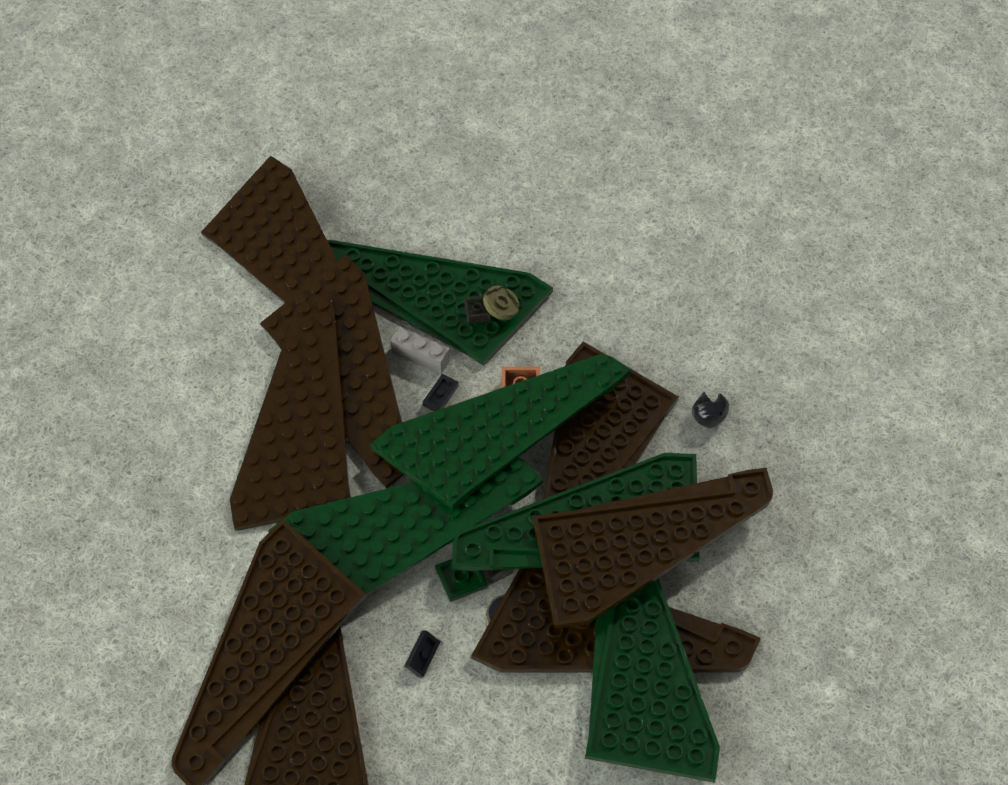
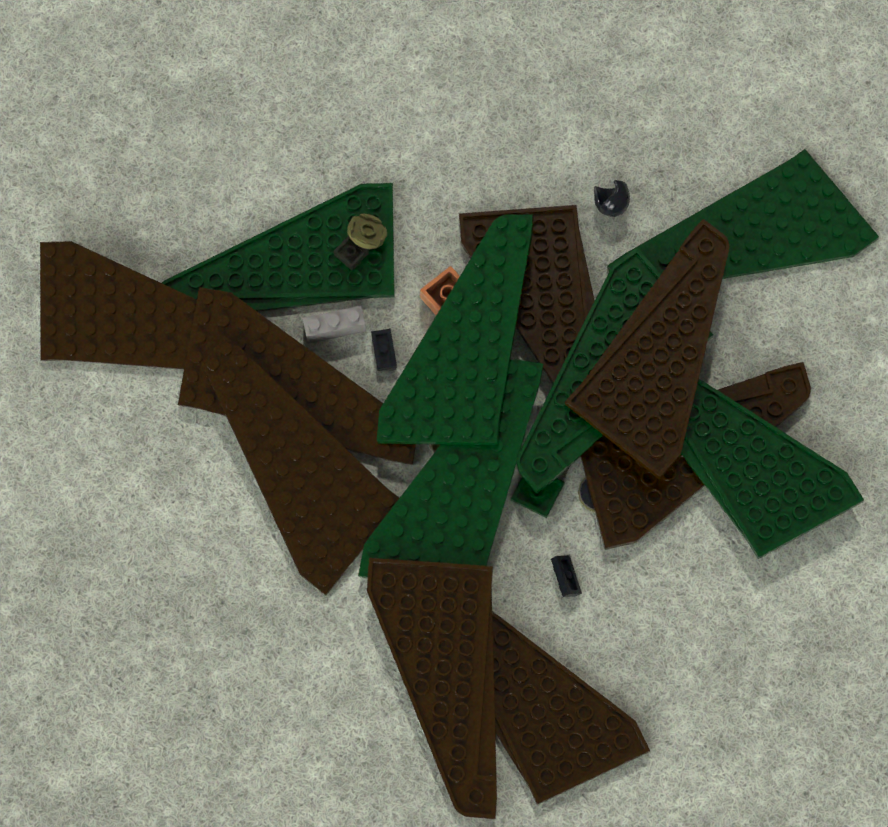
camera: 40 degrees left, 15 degrees up
(833, 522) = (774, 223): none -> dark green wing

